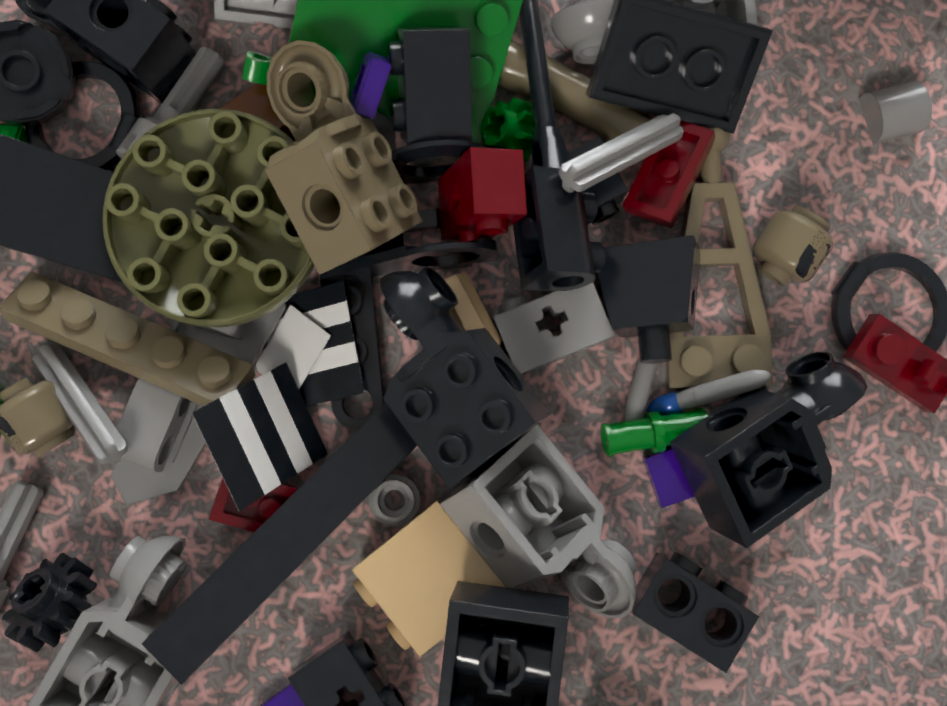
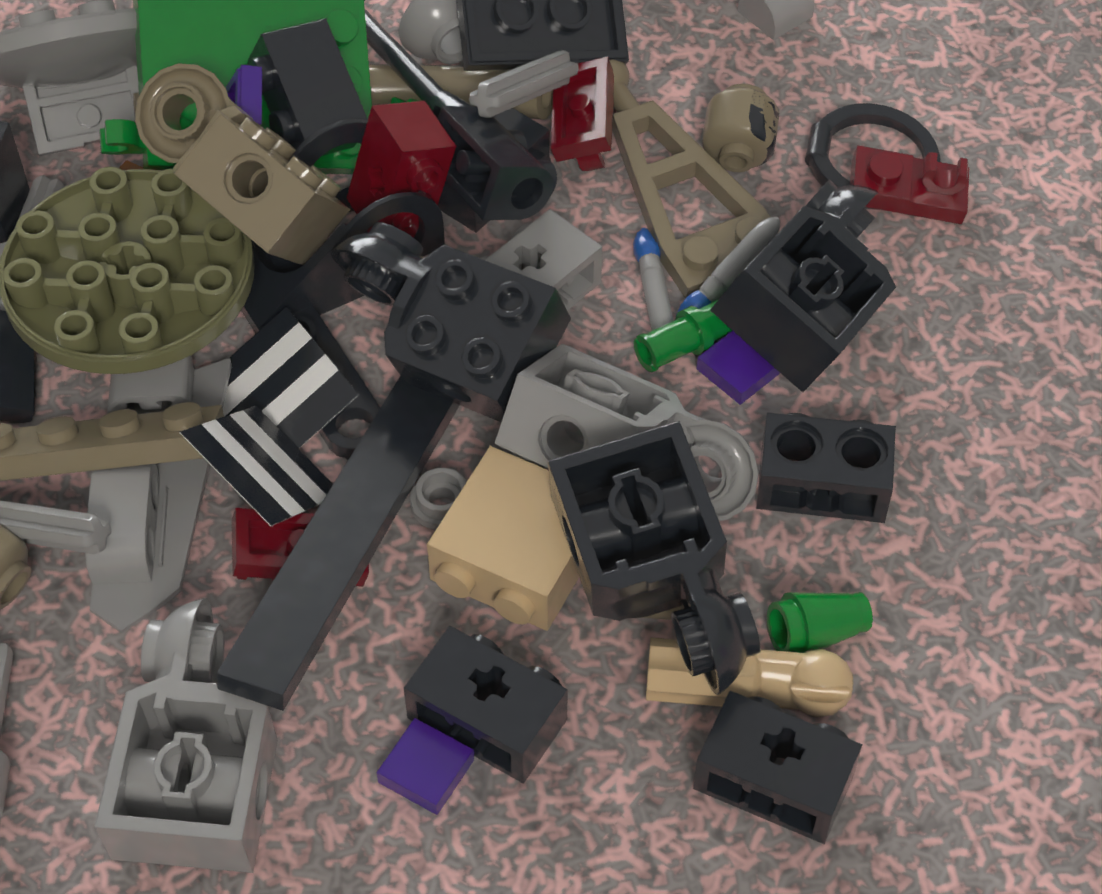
camera: 25 degrees left, 30 degrees down
(49, 602) = (71, 736): black gear -> none
(295, 342) = (261, 385): white sticker -> none
(652, 292) = (619, 202): black torso -> none

